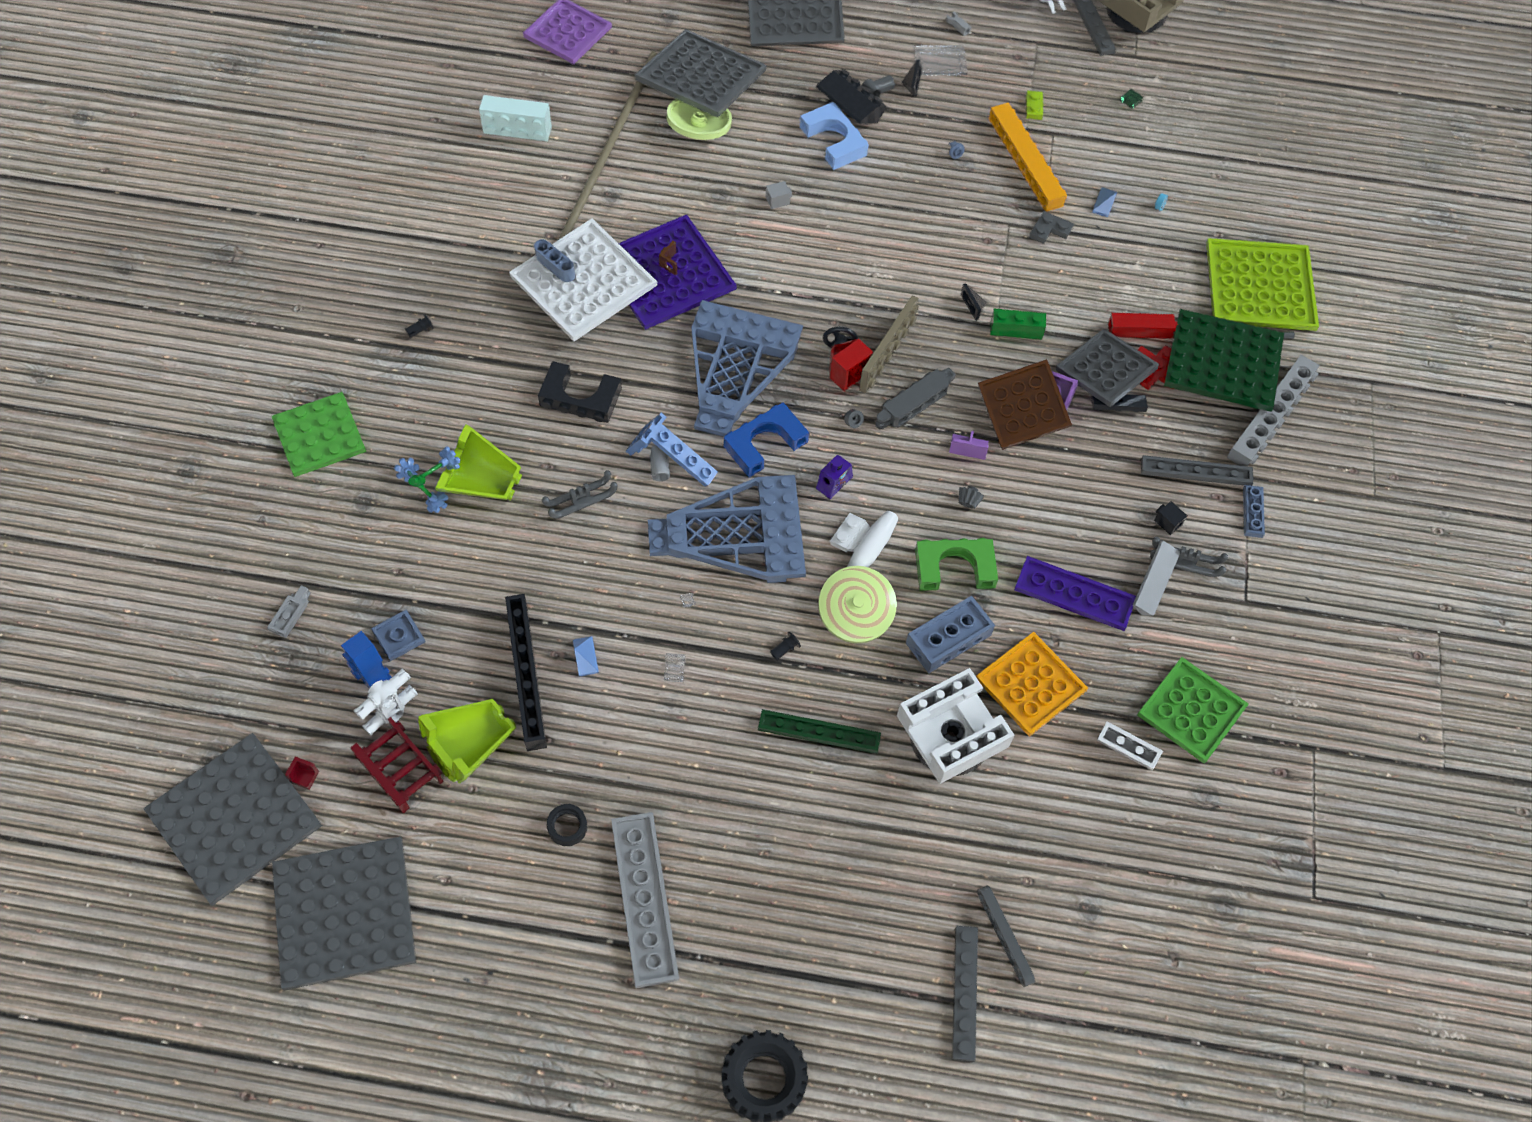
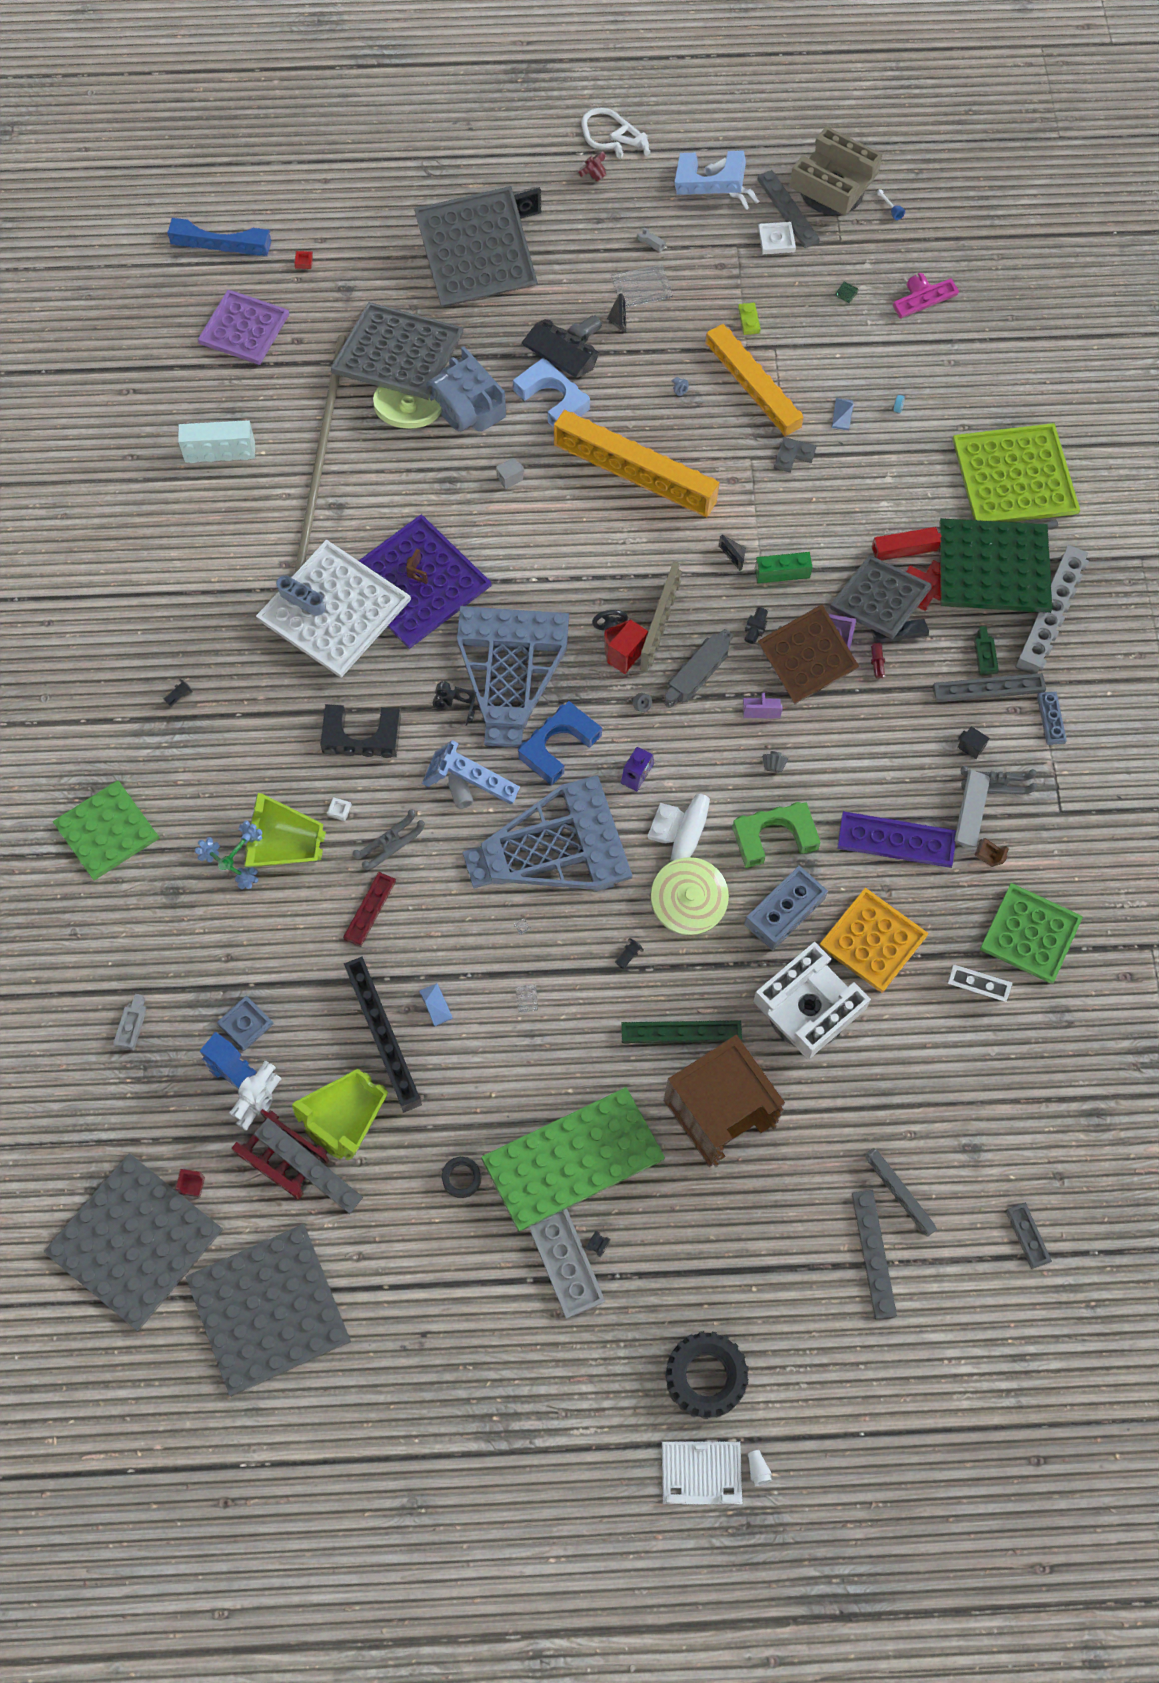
camera: 10 degrees left, 5 degrees up
(420, 781) = (308, 1166): none -> dark grey plate
(541, 458) = (339, 809): none -> white tile
(545, 554) = (369, 909): none -> dark red tile
(668, 377) = (445, 697): none -> black piece
(681, 830) = (572, 1159): none -> bright green plate
(686, 920) = (598, 1243): none -> black wheel
(755, 120) = (468, 394): none -> sand blue brick
(843, 801) = (722, 1099): none -> reddish brown container
(898, 207) = (636, 463): none -> light orange brick
(980, 371) = (756, 625): none -> black axle
(1075, 41) = (776, 238): none -> white plate
(1092, 425) = (878, 660): none -> dark red axle
(1130, 1010) = (1028, 1235): none -> dark grey tile
(1167, 625) = (990, 853): none -> reddish brown bracket
(1194, 39) = (897, 211): none -> blue hinge
(1199, 438) = (985, 652): none -> dark green hinge
(1204, 113) = (924, 295): none -> dark pink plate

